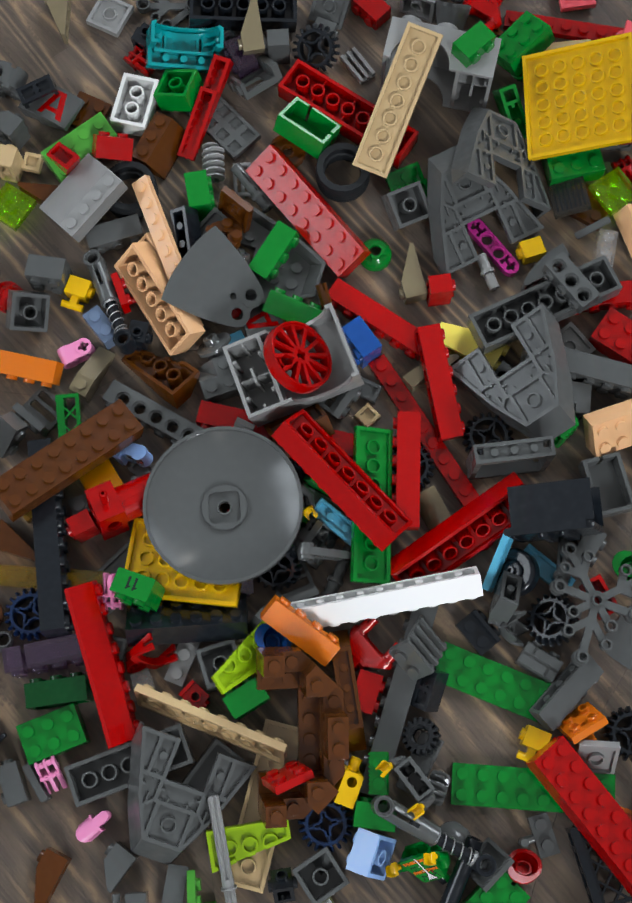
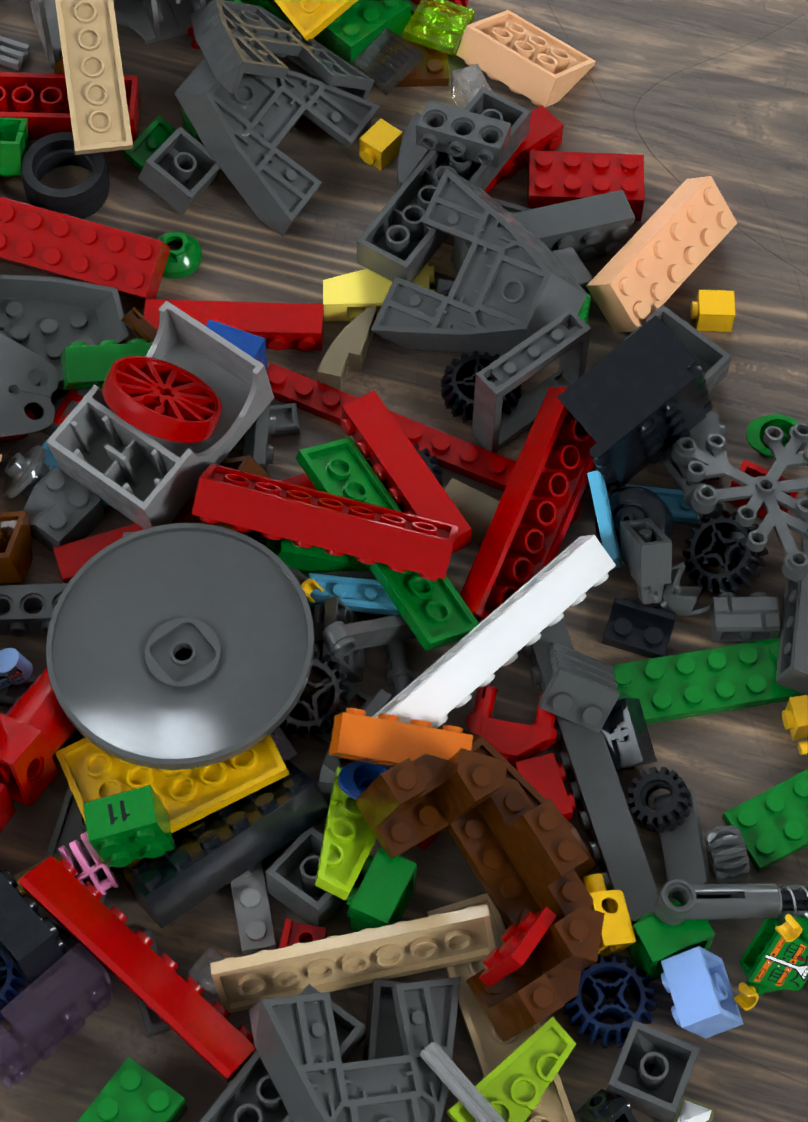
camera: 35 degrees left, 15 degrees down
(58, 691) = (87, 1060): dark green piece -> none
(137, 662) = (188, 947): red piece -> none
(274, 251) = (36, 306): green brick -> none
(367, 415) = (294, 444): tan tile -> none
(377, 784) = (634, 873): green brick -> none
(412, 283) = (251, 259): dark tan slope -> none
(413, 779) = (691, 847): dark grey torso -> none
(439, 383) = (372, 348): red brick -> none
(440, 289) = (293, 244): red brick -> none
(487, 272) = (343, 198): light grey pin -> none
(495, 245) = (331, 162): dark pink beam -> none
(589, 229) = (441, 76): dark grey tile -> none

